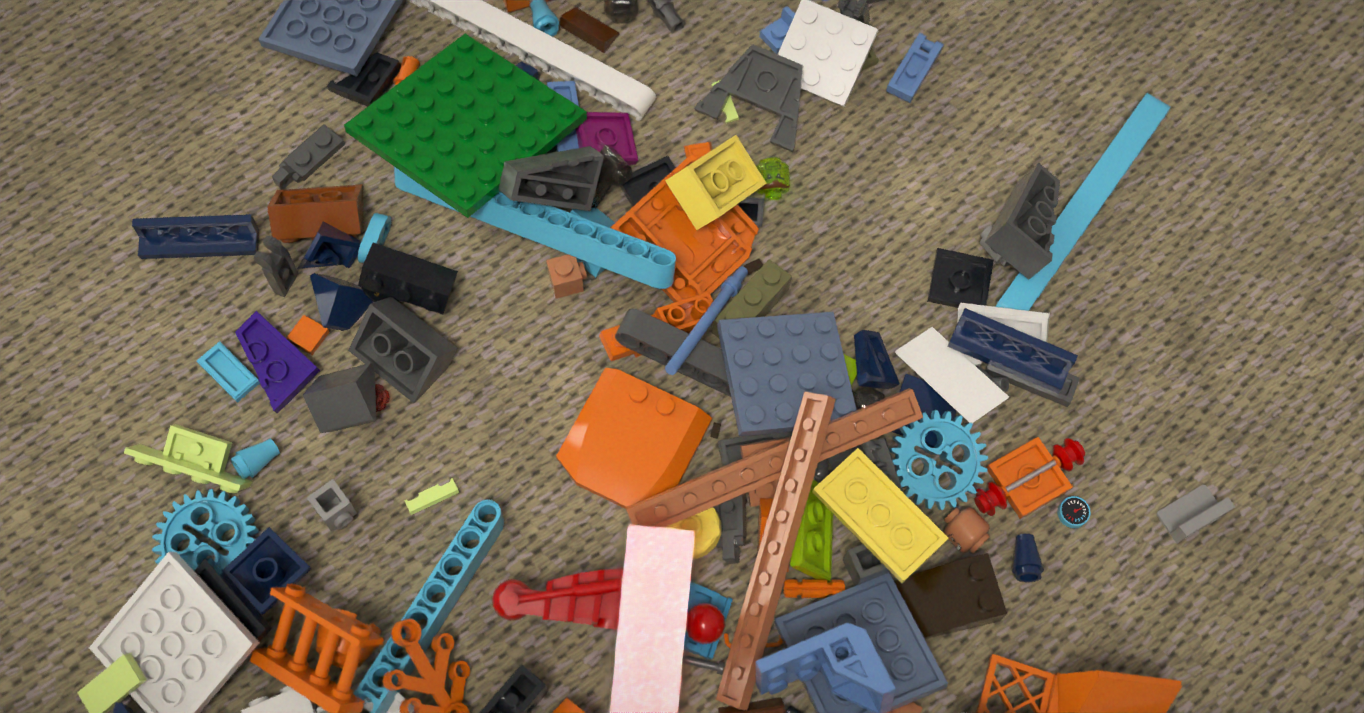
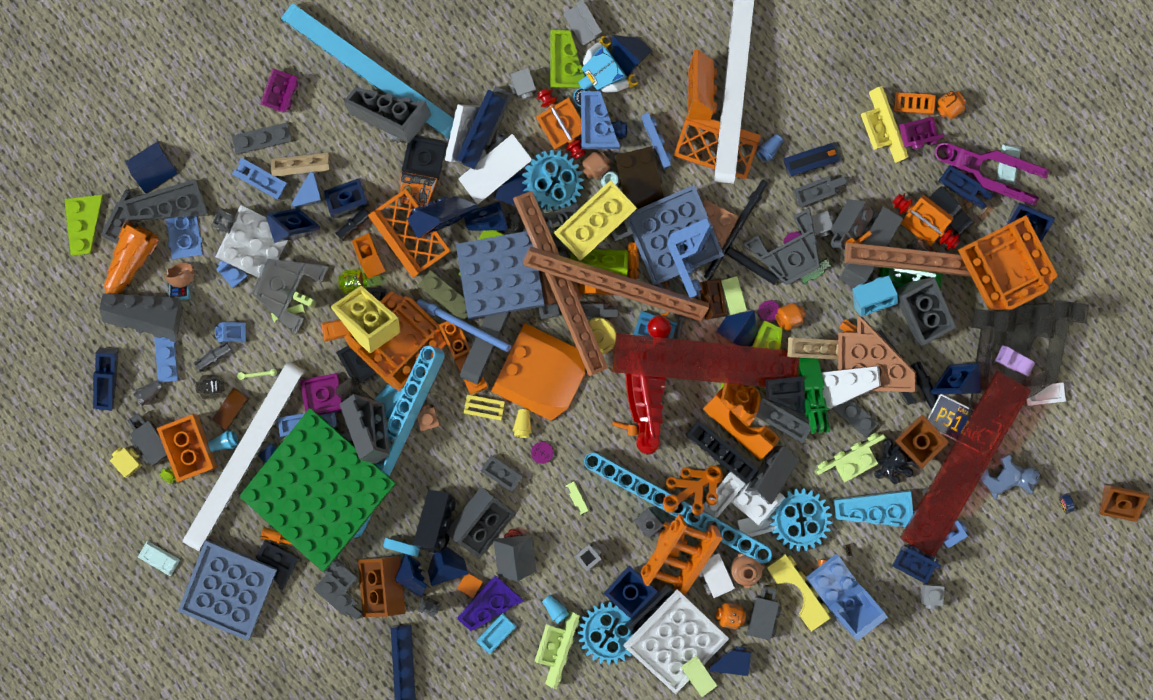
camera: 85 degrees left, 20 degrees up
(342, 159) = (341, 575): none -> dark grey plate
(379, 605) = (648, 523): none -> flat silver brick
(476, 381) = (501, 473): none -> dark grey plate
(506, 443) = (541, 452): none -> magenta piece
(537, 582) = (632, 429): none -> orange hand
(551, 412) = (522, 425): none -> light yellow cone
(586, 336) = (468, 404): none -> light yellow tile
(635, 44) = (241, 376): none -> yellowish green hinge
(697, 28) = (231, 332): none -> medium blue bracket
(744, 111) = (305, 300): none -> yellowish green tile
(809, 200) = (368, 256): none -> orange slope
(827, 237) = (394, 241): none -> orange fence
(851, 96) = (290, 225): none -> dark blue slope
(856, 183) = (353, 224): none -> black pin
(875, 286) = (439, 215): none -> dark blue slope
(891, 173) = (346, 198): none -> dark blue slope
(899, 124) = (308, 193): none -> medium blue slope
(908, 266) = (420, 187): none -> torso
(939, 116) = (300, 164): none -> tan plate
(945, 554) = (611, 175): none -> light aqua plate
(972, 72) = (261, 138): none -> dark grey plate
(1014, 627) = (656, 140): none -> medium blue plate
(1036, 525) = (595, 123): none -> medium blue wing
(1043, 90) = (279, 91): none -> magenta bracket
(1087, 418) = (522, 84): none -> light grey brick
(1122, 540) = (603, 70): none -> torso
(1127, 483) = (564, 61): none -> lime wing
(1153, 583) = (629, 52): none -> dark blue slope

